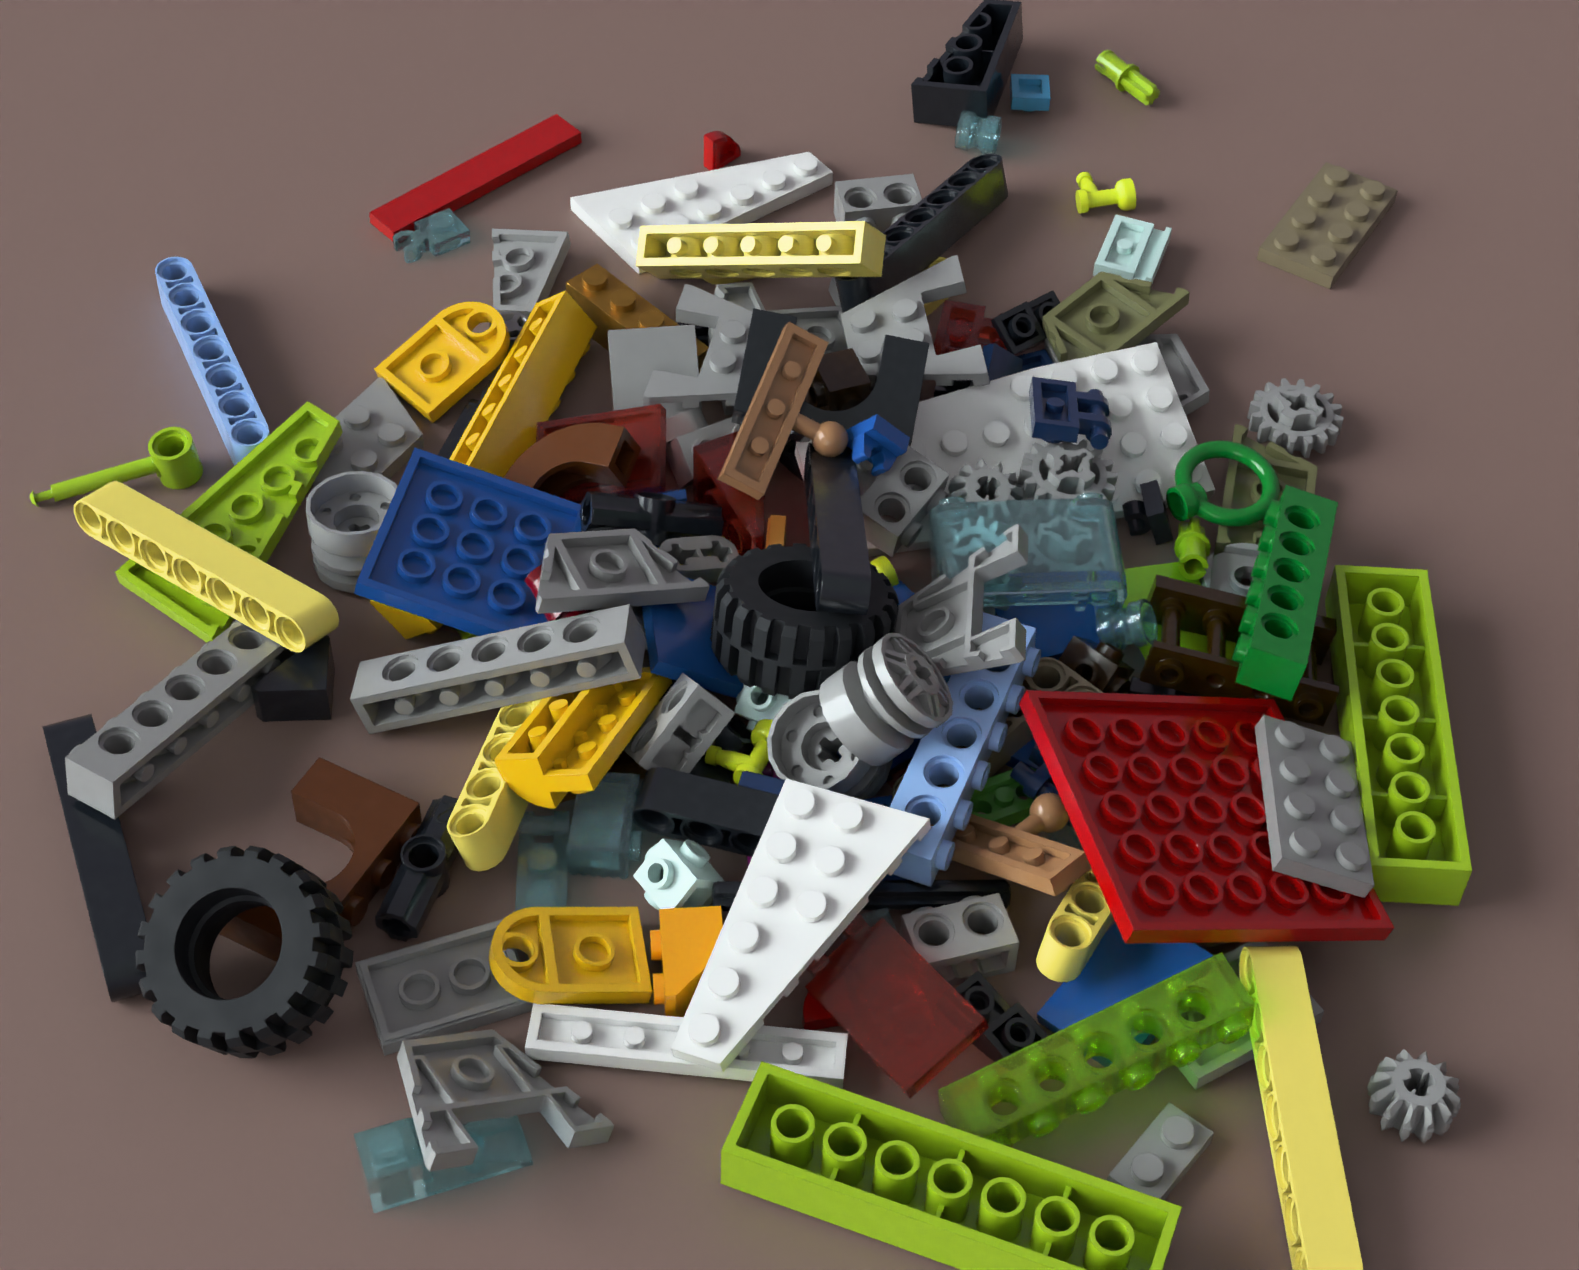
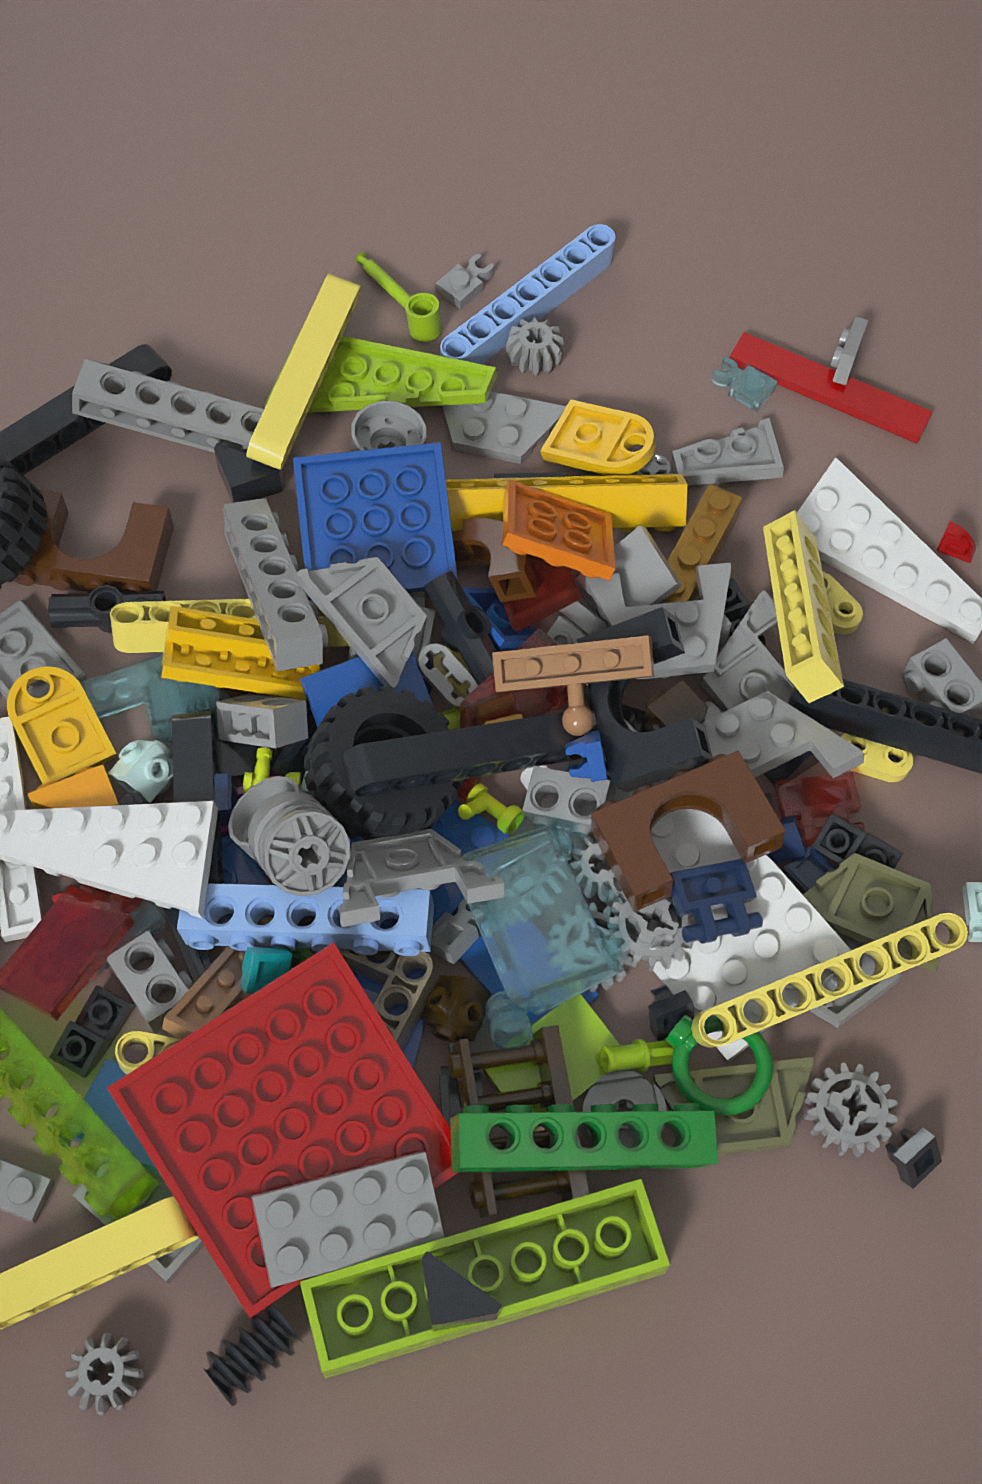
camera: 70 degrees right, 15 degrees up
(137, 416) = (463, 284): none -> light grey plate
(281, 376) = (535, 346): none -> light grey gear
(452, 137) = (847, 350): none -> light grey plate
(576, 397) = (558, 530): none -> orange plate
(979, 440) = (719, 788): none -> reddish brown arch
(1004, 799) = (263, 966): none -> teal tile
(1185, 362) = (848, 973): none -> light yellow beam
(1352, 389) = (916, 1156): none -> black tile
(1424, 730) = (453, 1298): none -> black slope
(1424, 953) = (250, 1353): none -> black piece

